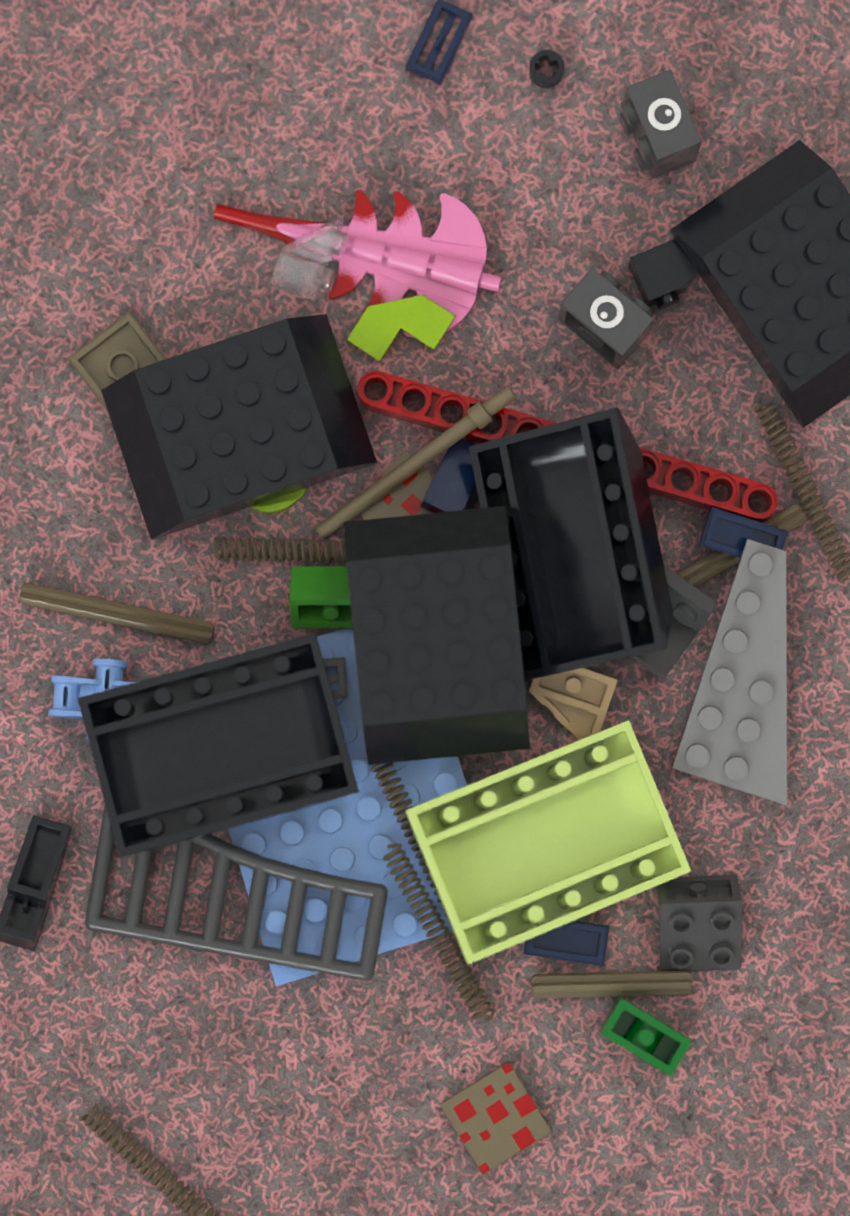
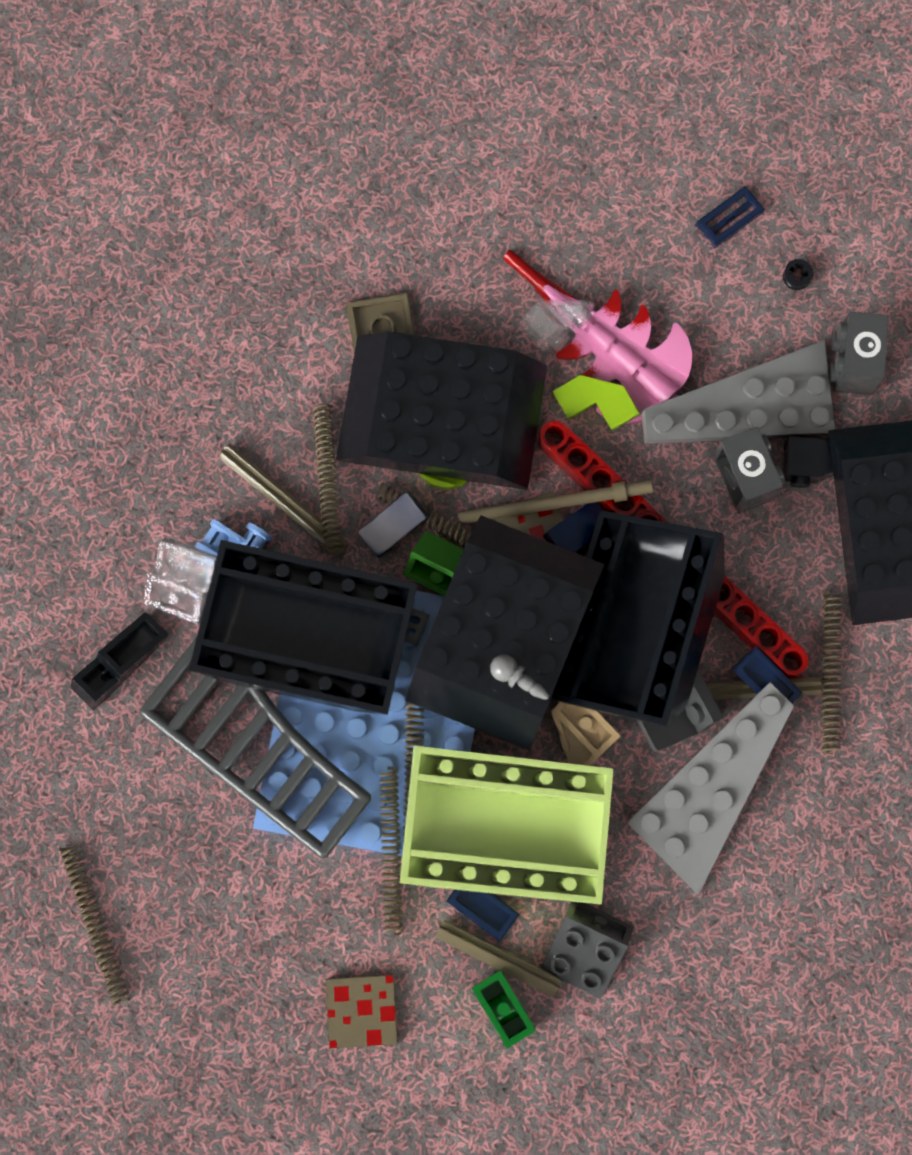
camera: 20 degrees right, 5 degrees down
(54, 761) = (180, 580): none -> clear slope
(152, 556) = (330, 477): none -> dark tan piece
(252, 577) = (394, 524): none -> tile
(461, 678) = (505, 669): none -> light grey bar
(590, 223) = (778, 396): none -> light grey wing

